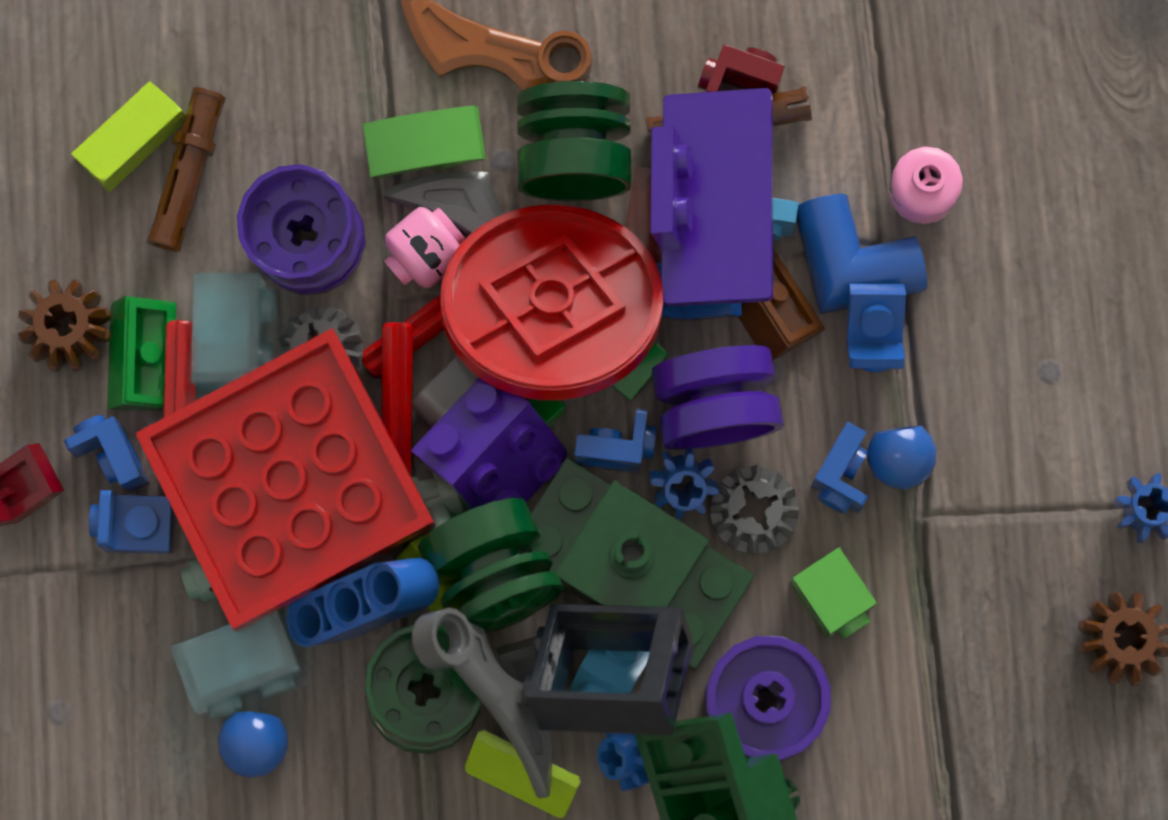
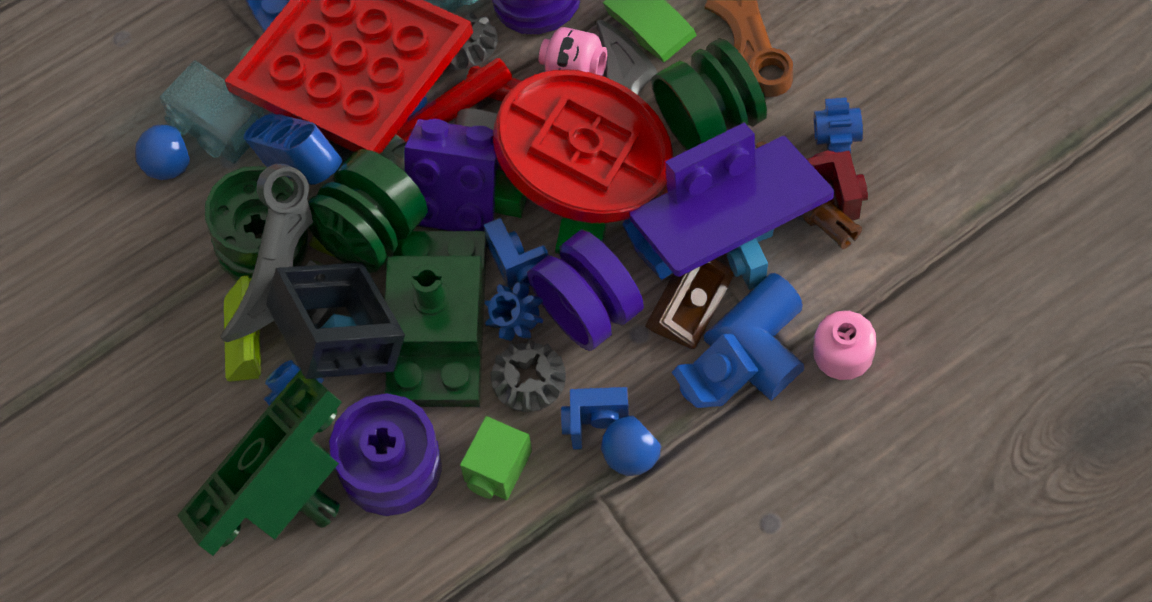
camera: 65 degrees right, 15 degrees down
(678, 35) = (838, 125): none -> blue gear

